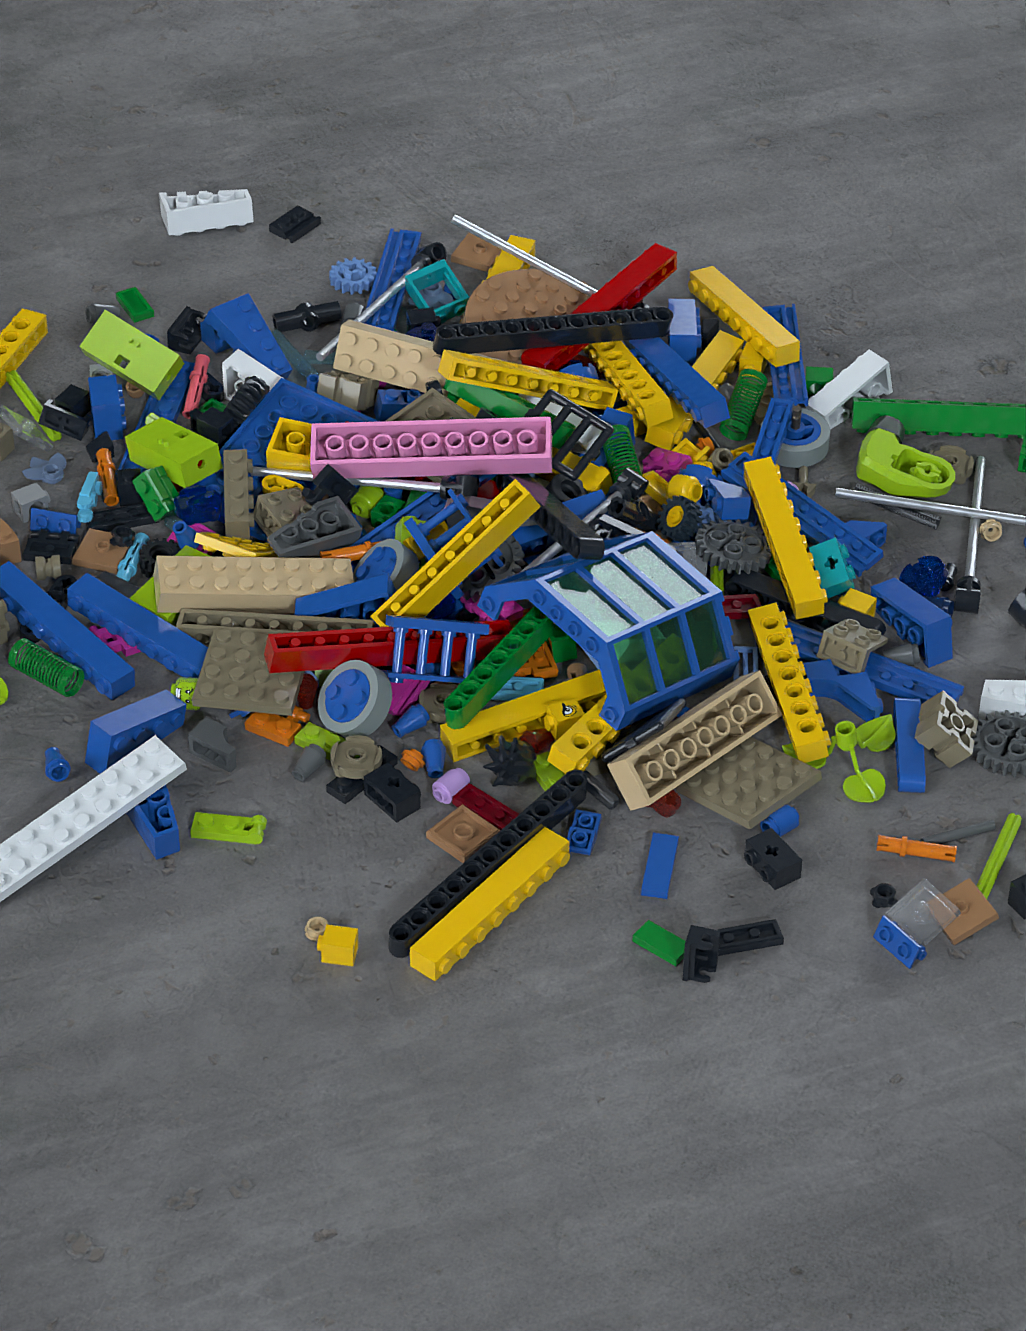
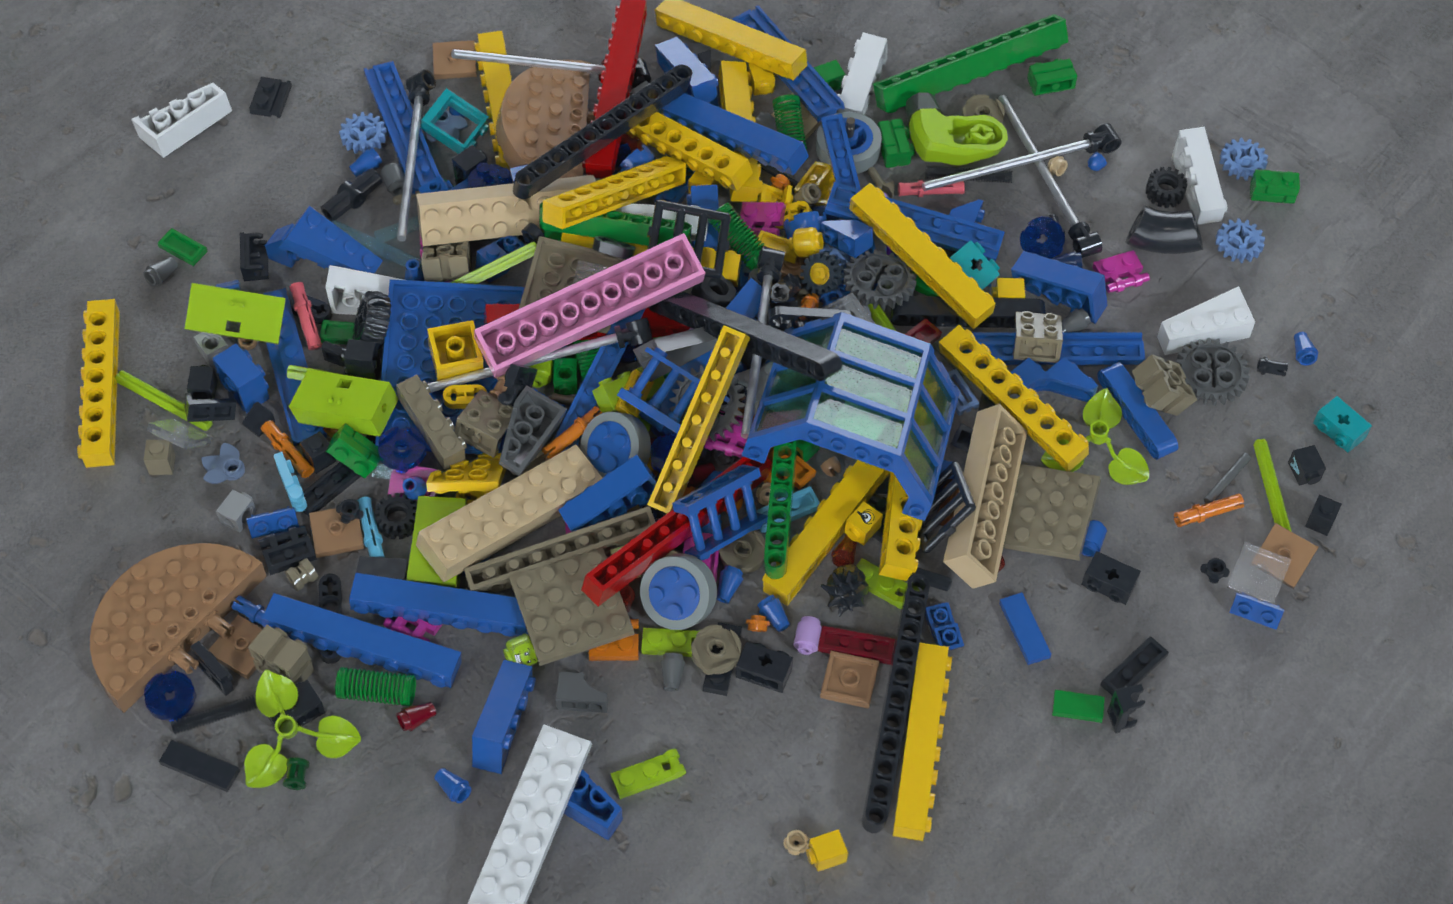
camera: 30 degrees left, 15 degrees up
(64, 703) = (413, 716): none -> dark red cone
(342, 295) = (367, 160): none -> blue cone
(383, 403) = (498, 265): none -> lime axle
(841, 454) = (895, 144): none -> green brick
(866, 508) = (915, 188): none -> coral pin
(986, 635) = (1119, 267): none -> dark pink plate

